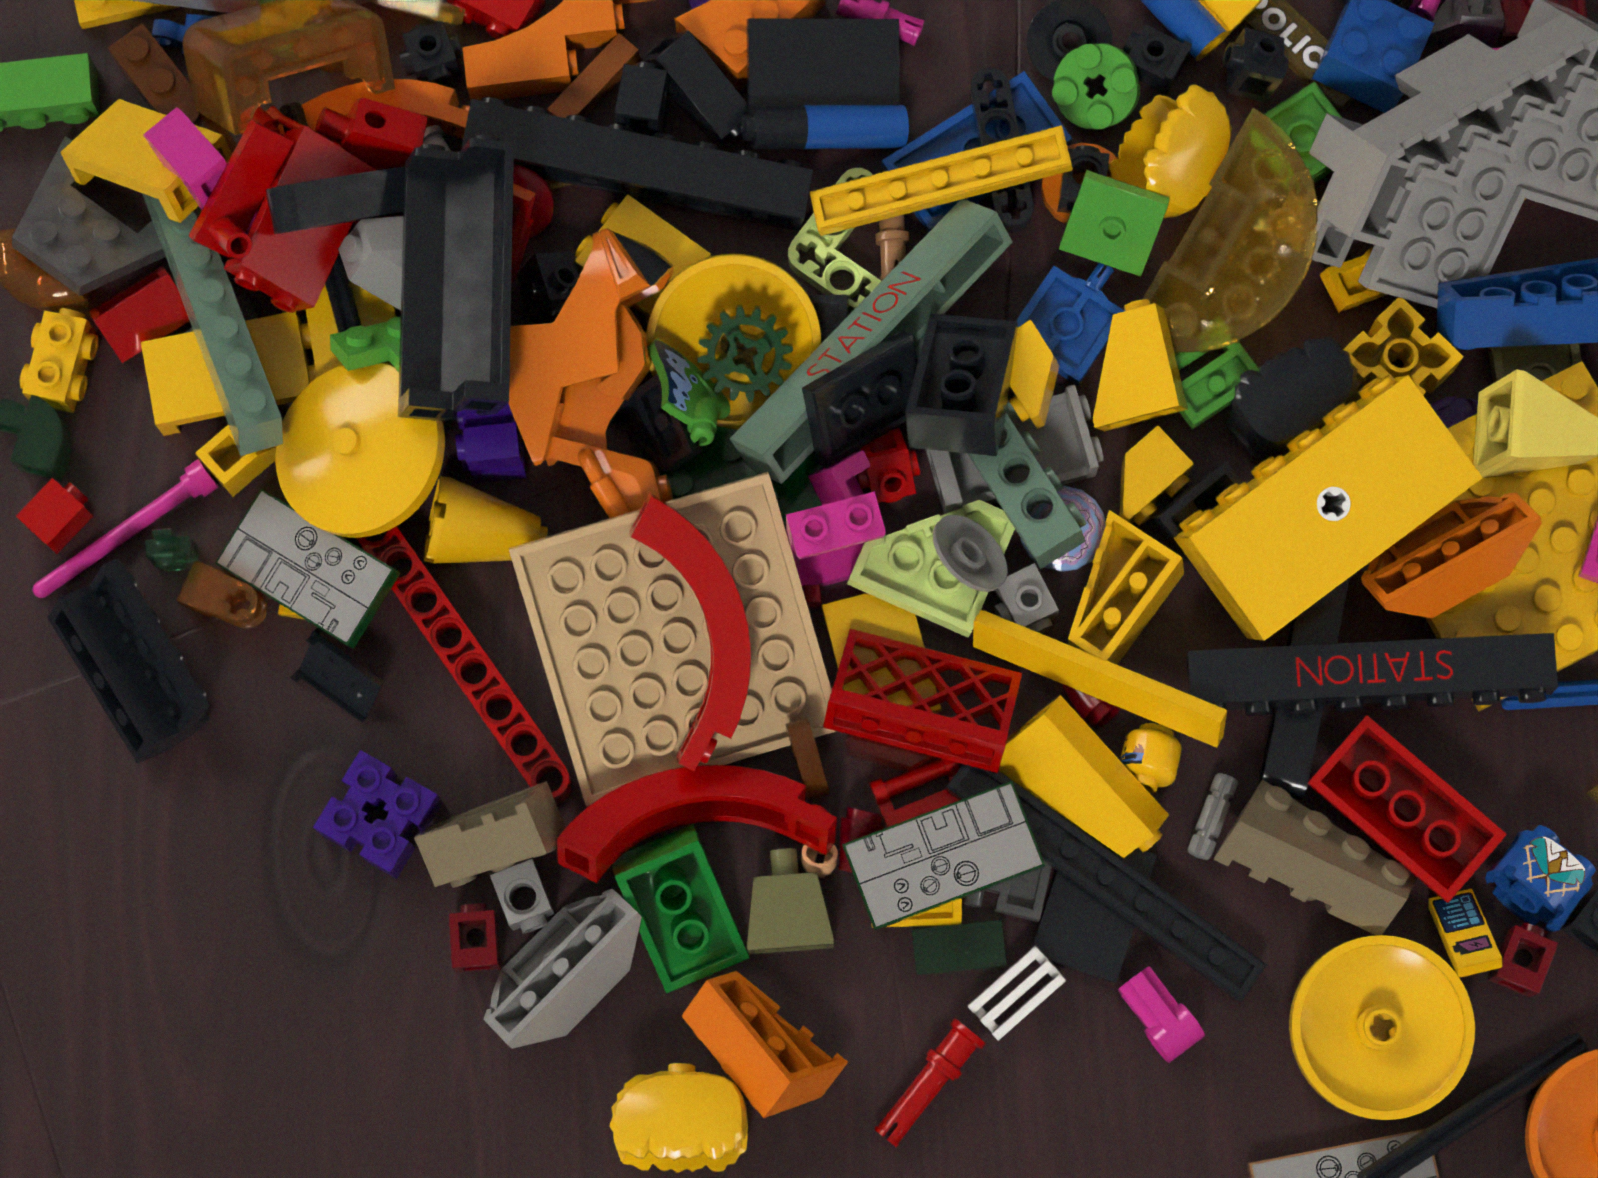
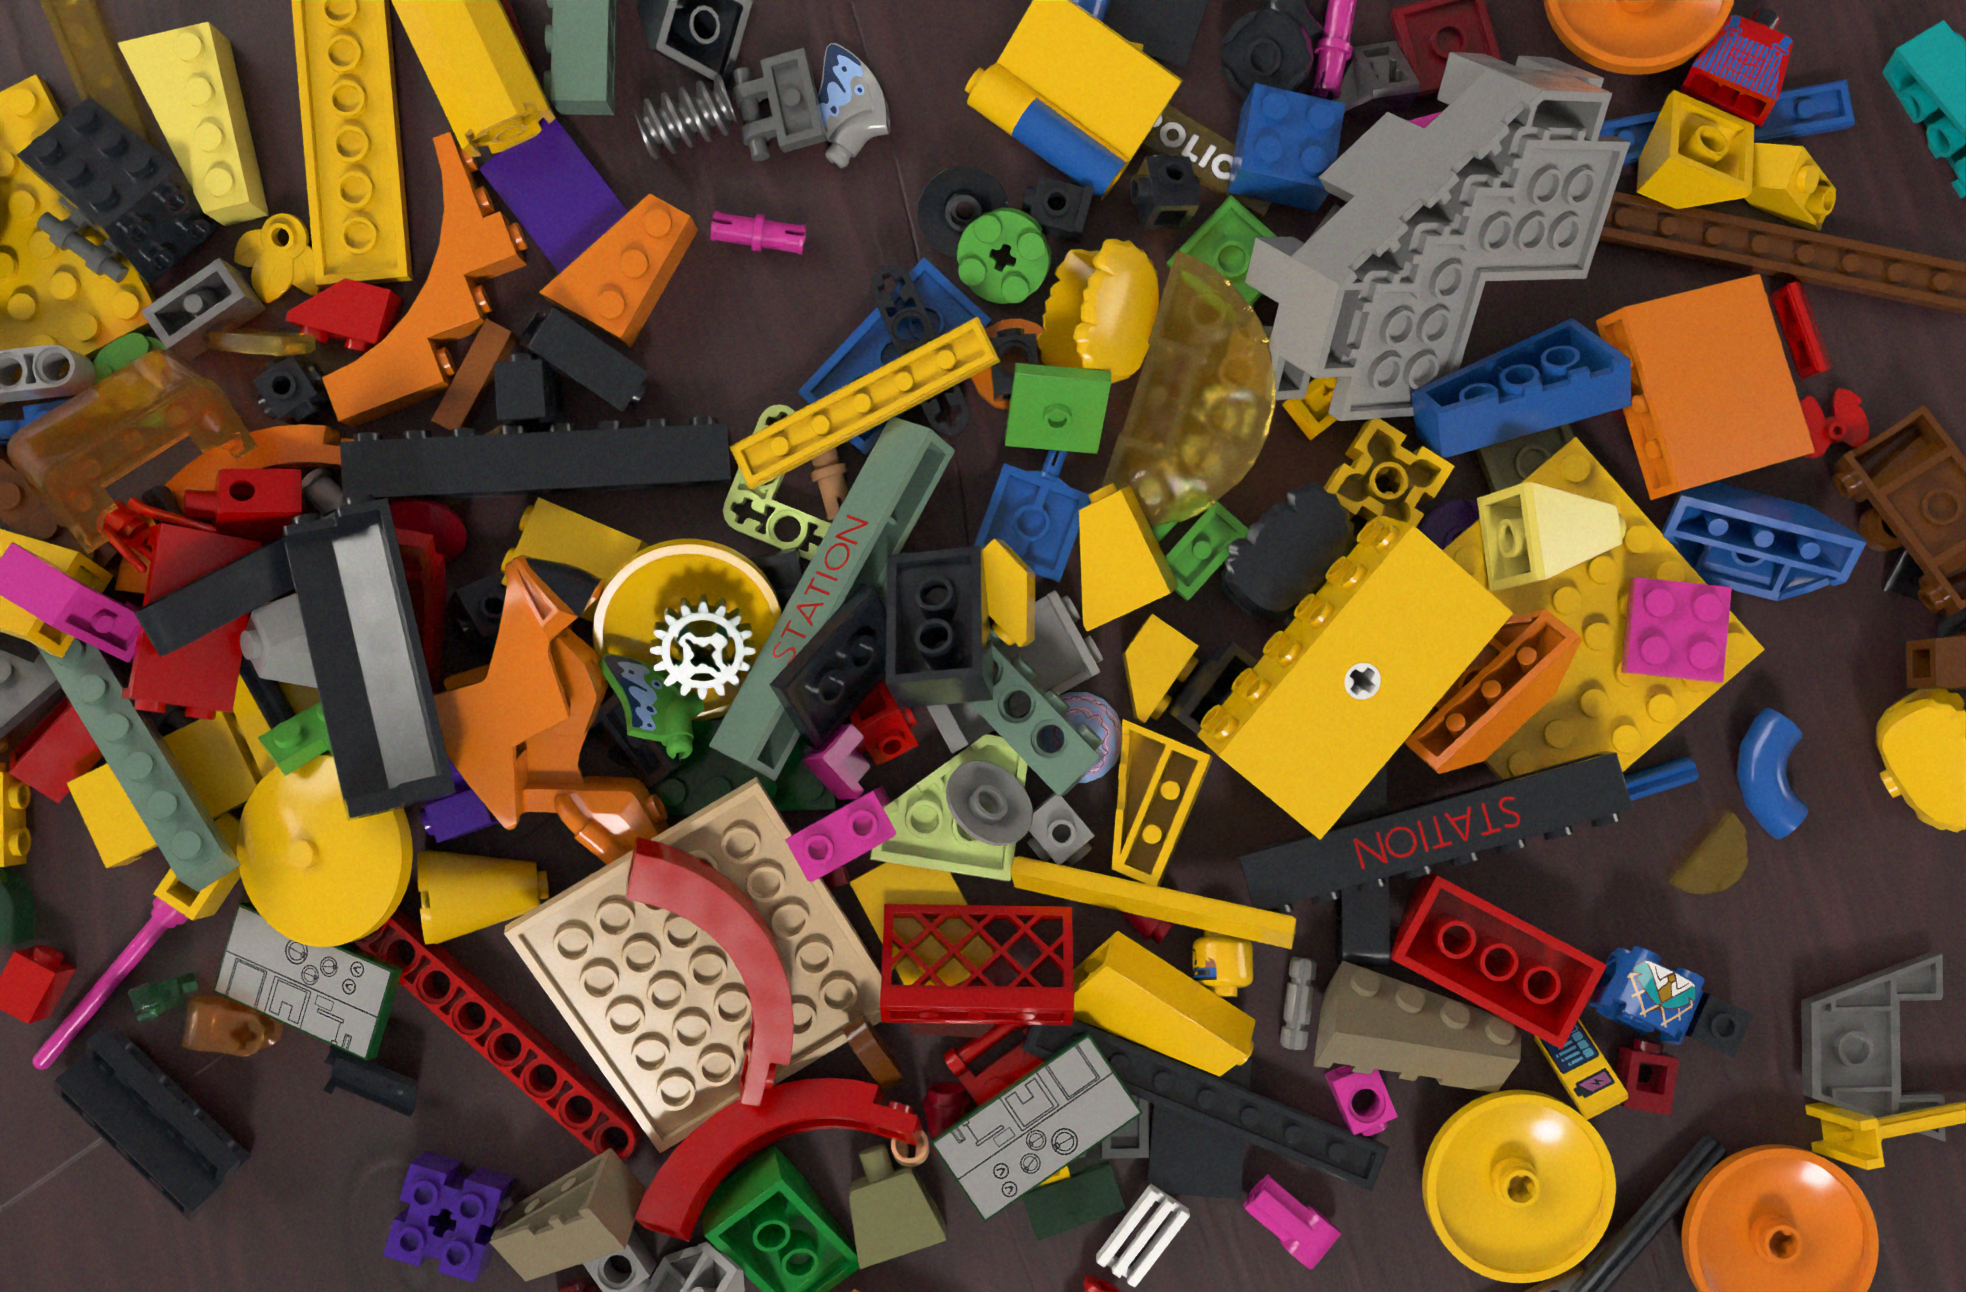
camera: 15 degrees left, 10 degrees up
(241, 191) = (108, 620): red piece -> none
(823, 84) = (715, 325): black door -> none
(1255, 894) = (1371, 1119): none -> dark pink brick

